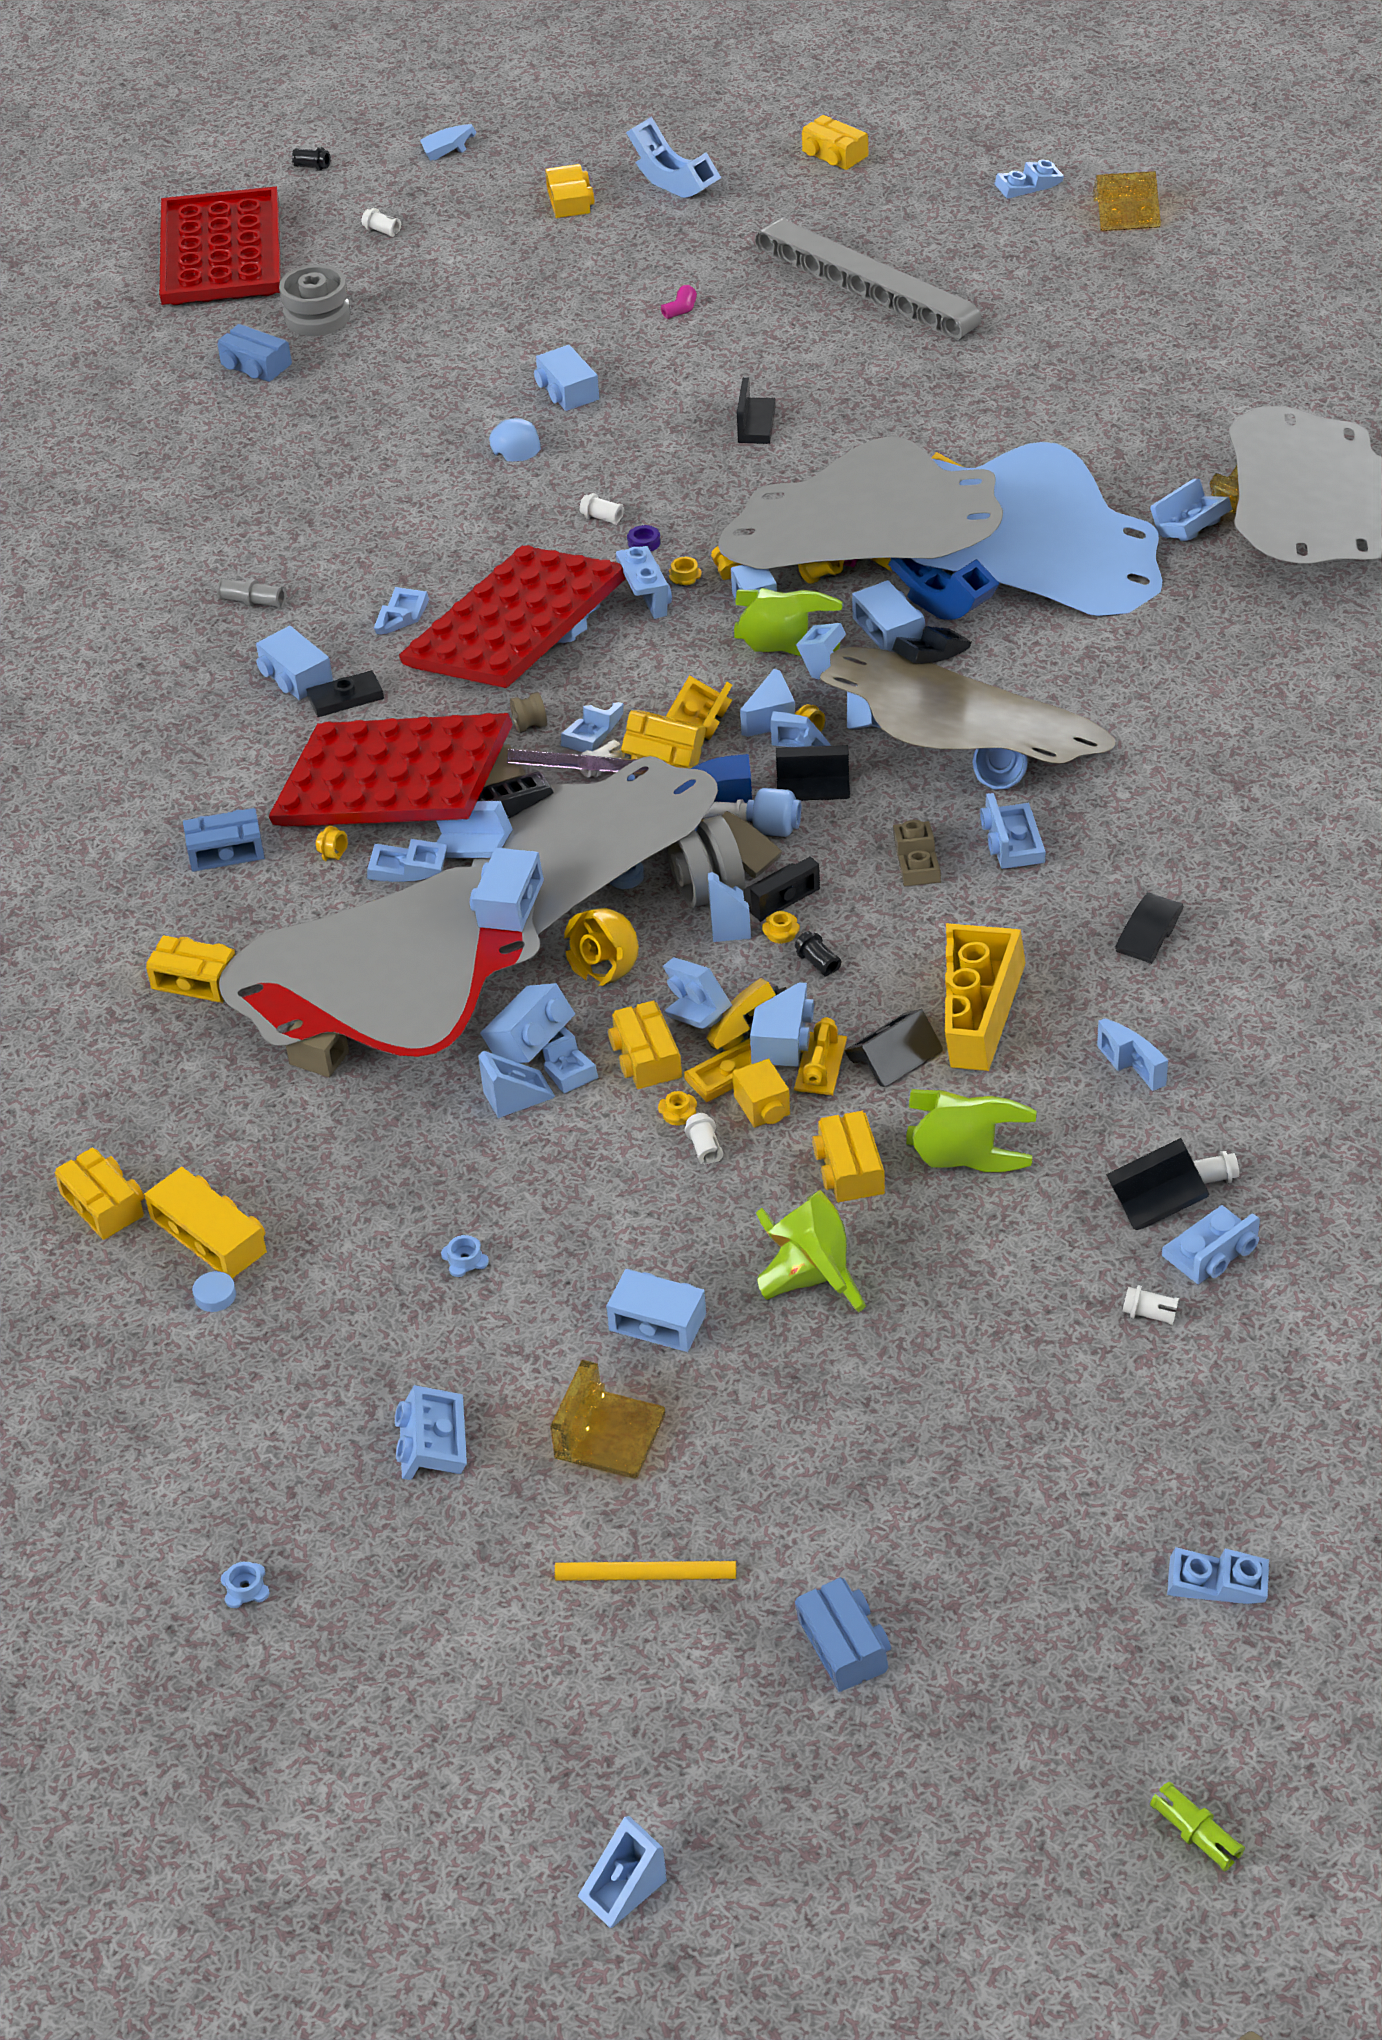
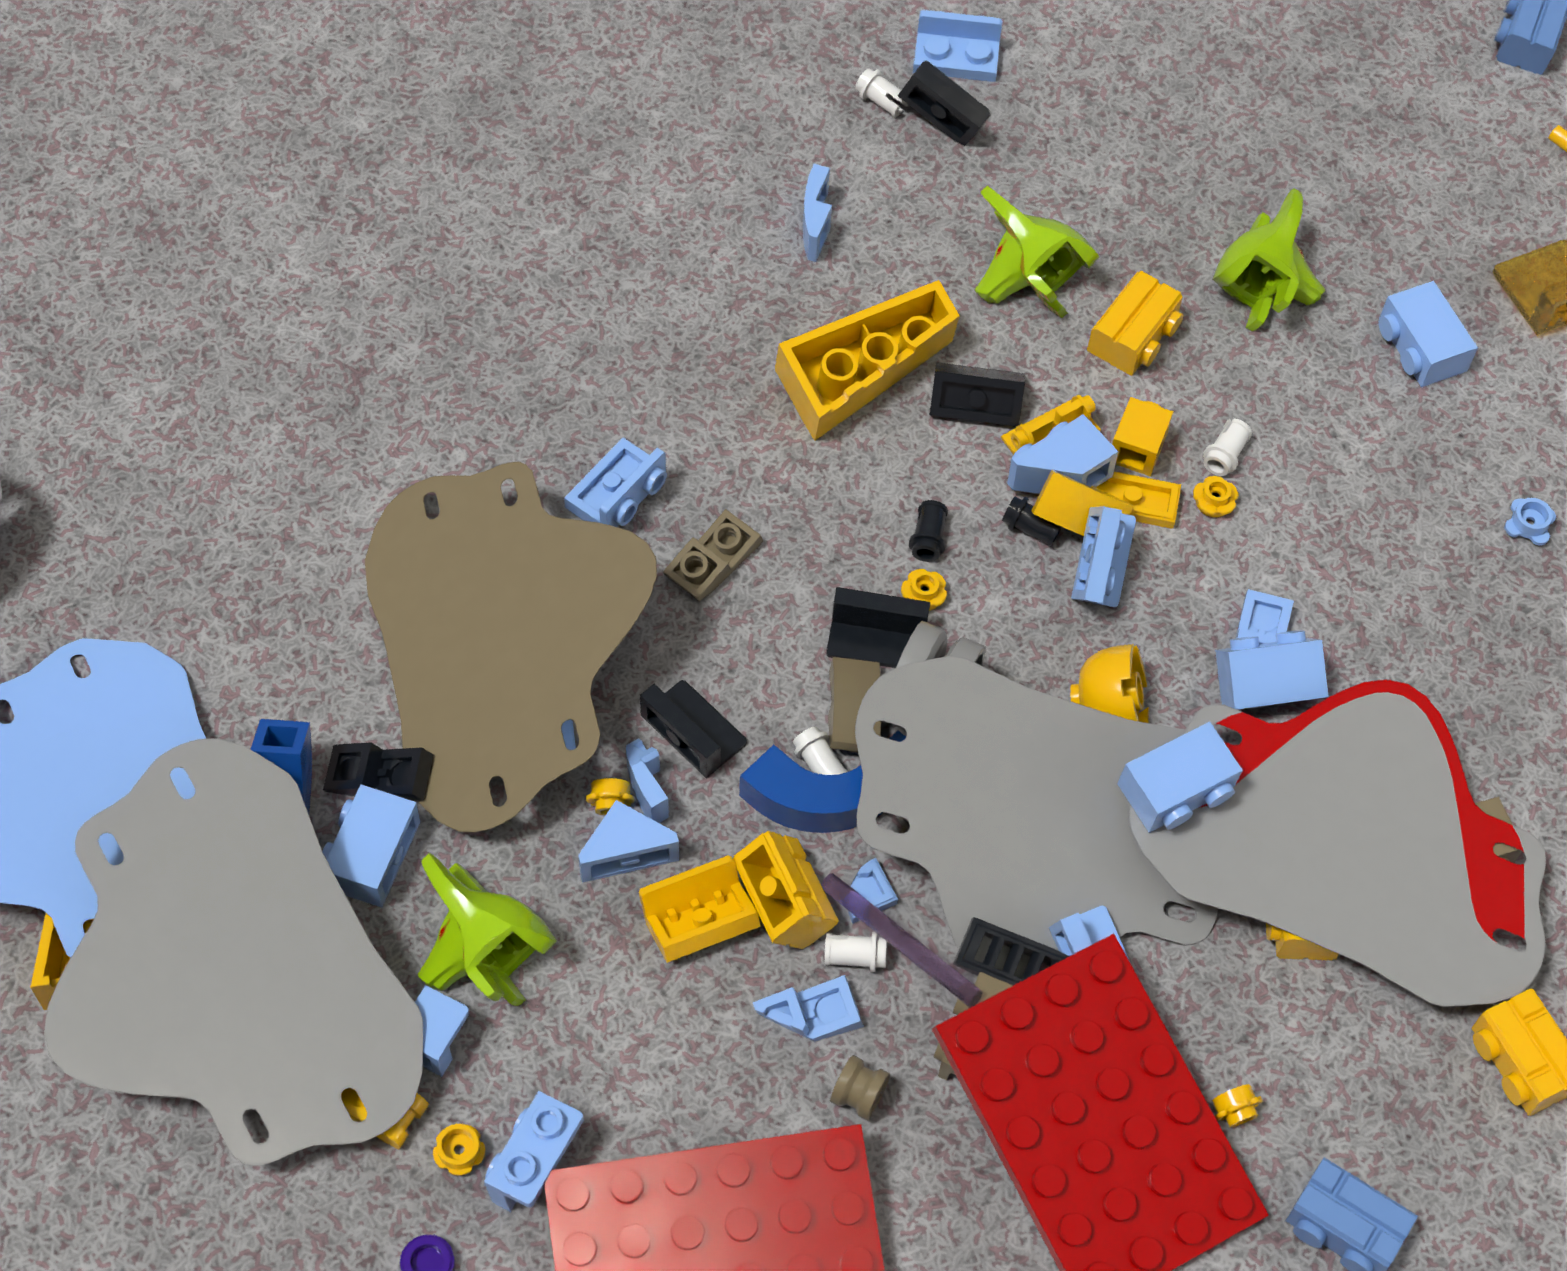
camera: 140 degrees left, 15 degrees up
(400, 864) = (1183, 1002): light blue slope -> none
(511, 1084) = (1344, 630): light blue slope -> none
(645, 1045) = (1184, 567): yellow brick -> none
(728, 911) = (968, 622): light blue slope -> none
(774, 812) = (787, 701): light blue head -> none
(818, 645) = (493, 849): light blue panel -> none
(1146, 1305) = (1064, 53): white pin -> none
(1148, 927) = (631, 304): black slope -> none

